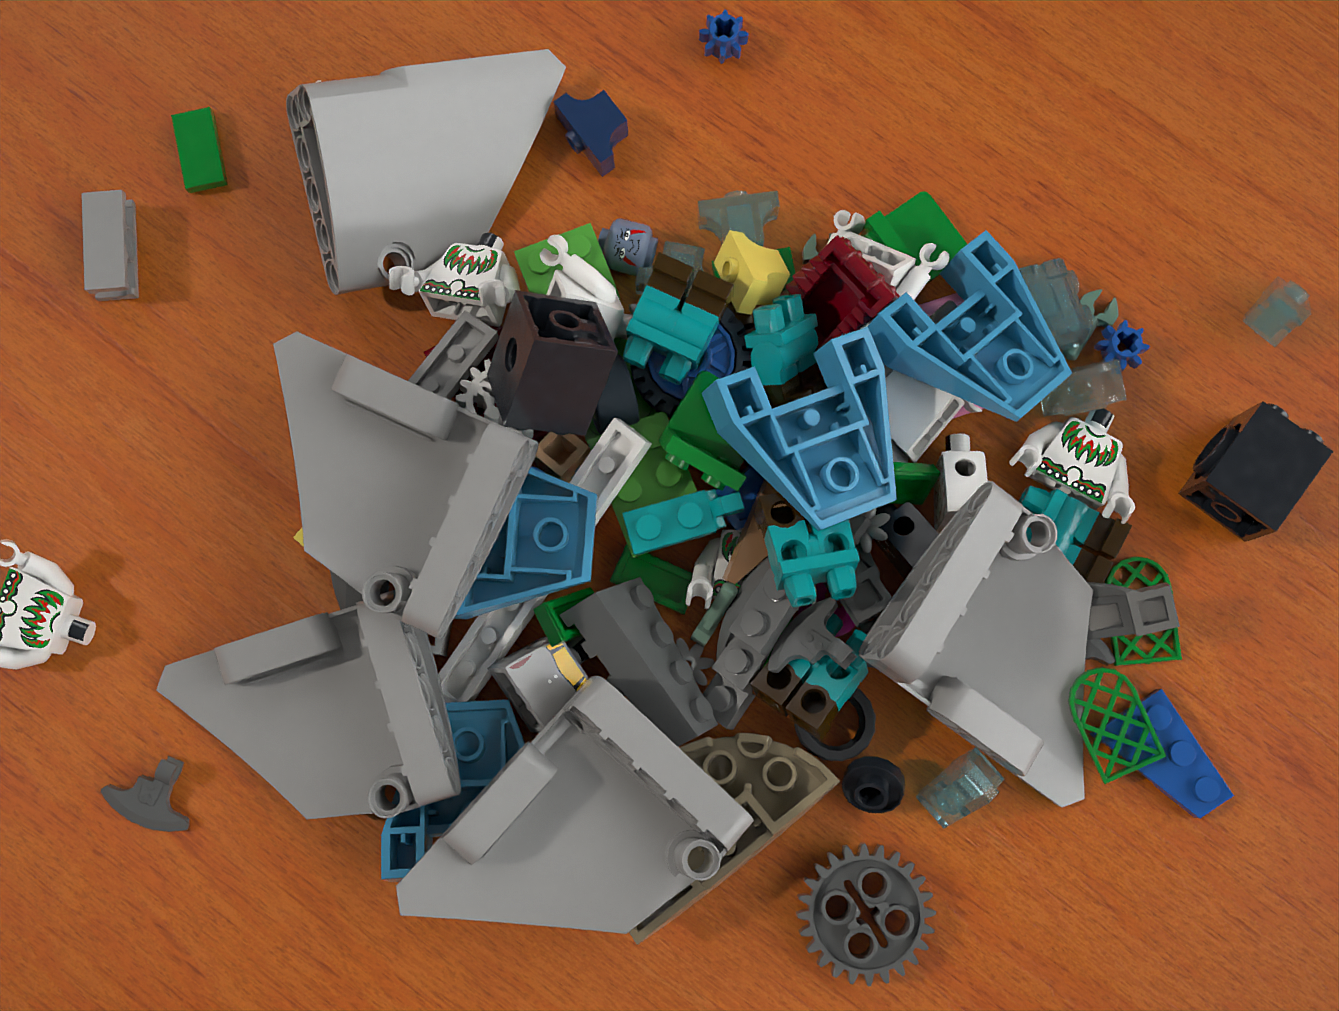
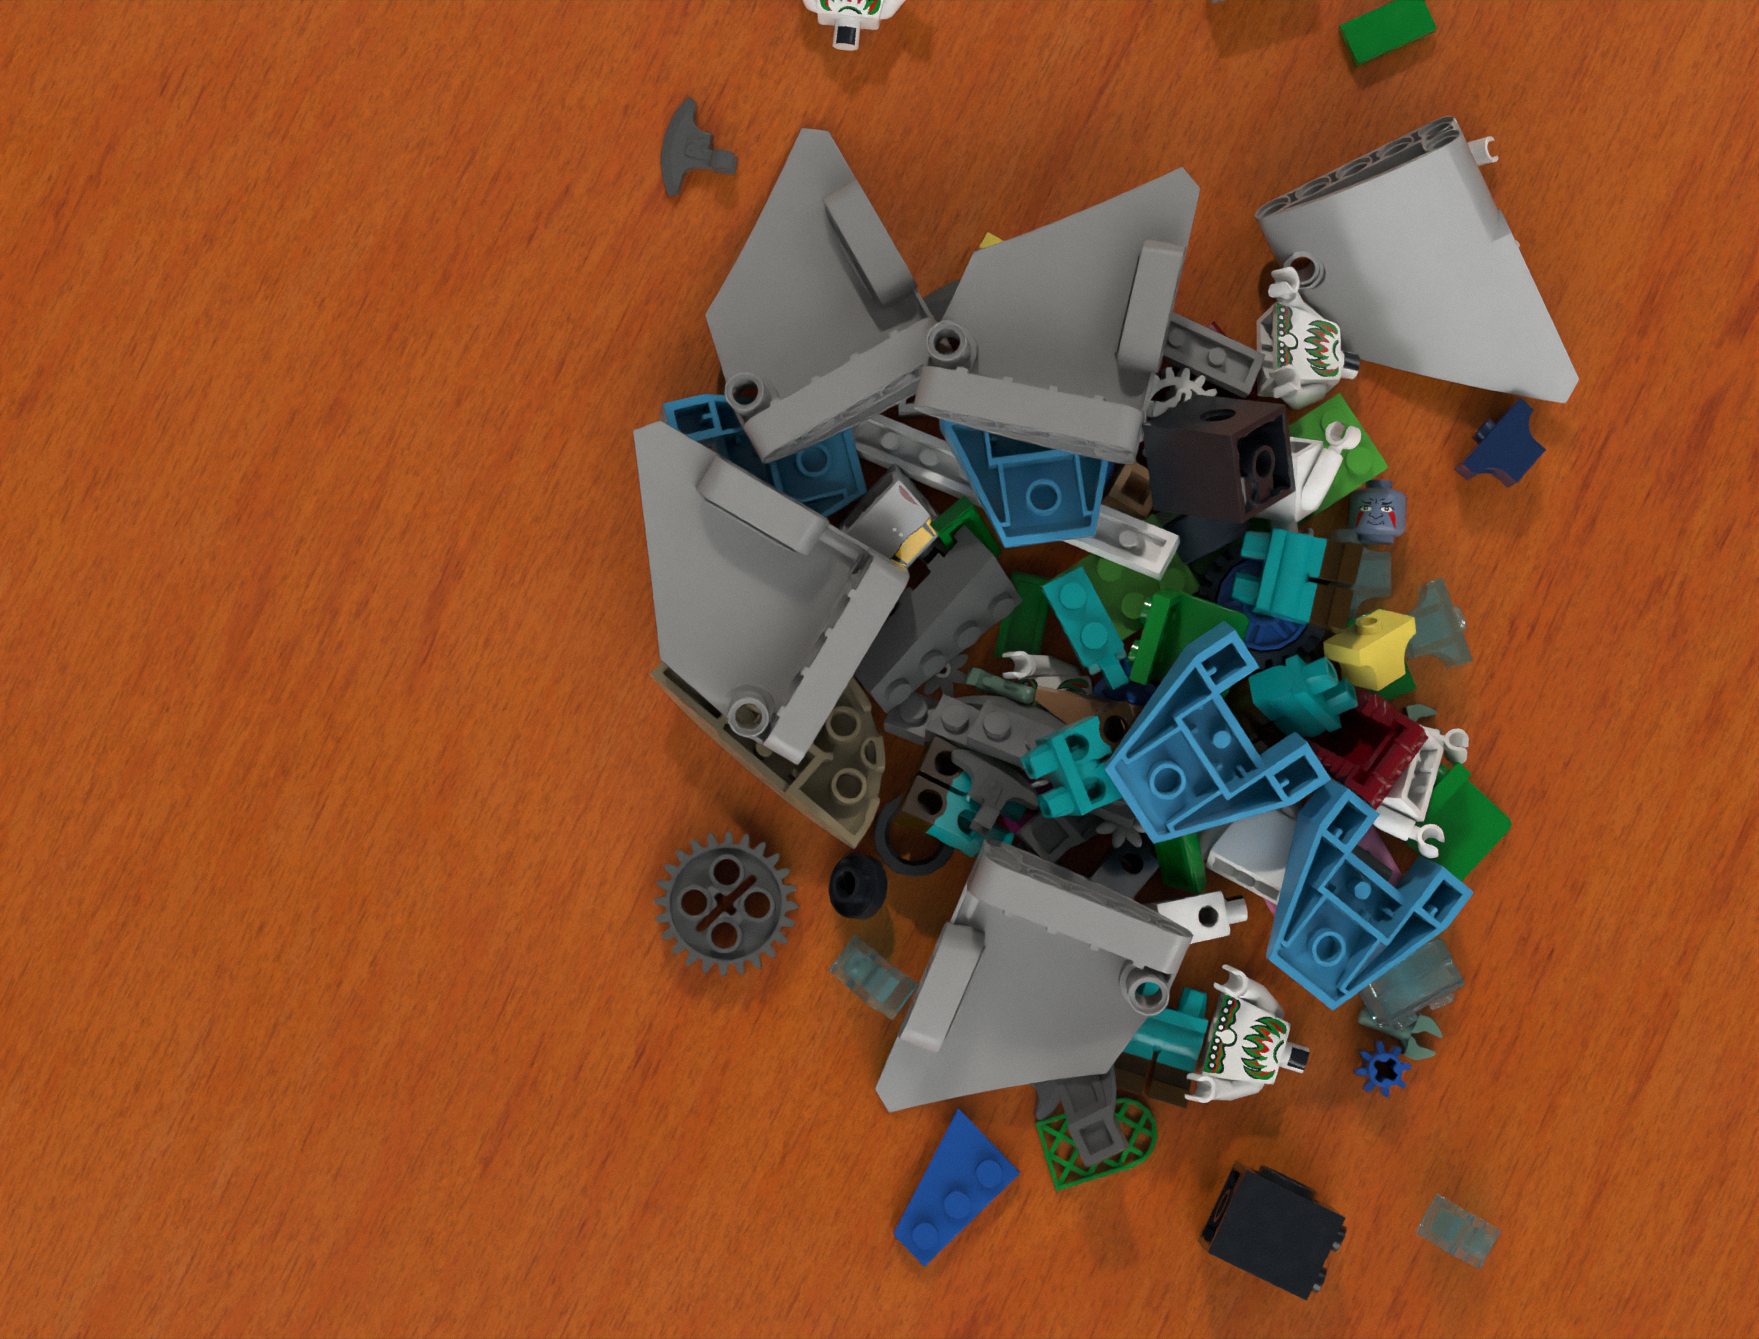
camera: 75 degrees right, 5 degrees up
(724, 26) = (1653, 568): blue gear -> none
(1086, 389) = (1324, 1036): clear light blue brick -> none
(1134, 765) = (961, 1113): green window -> none

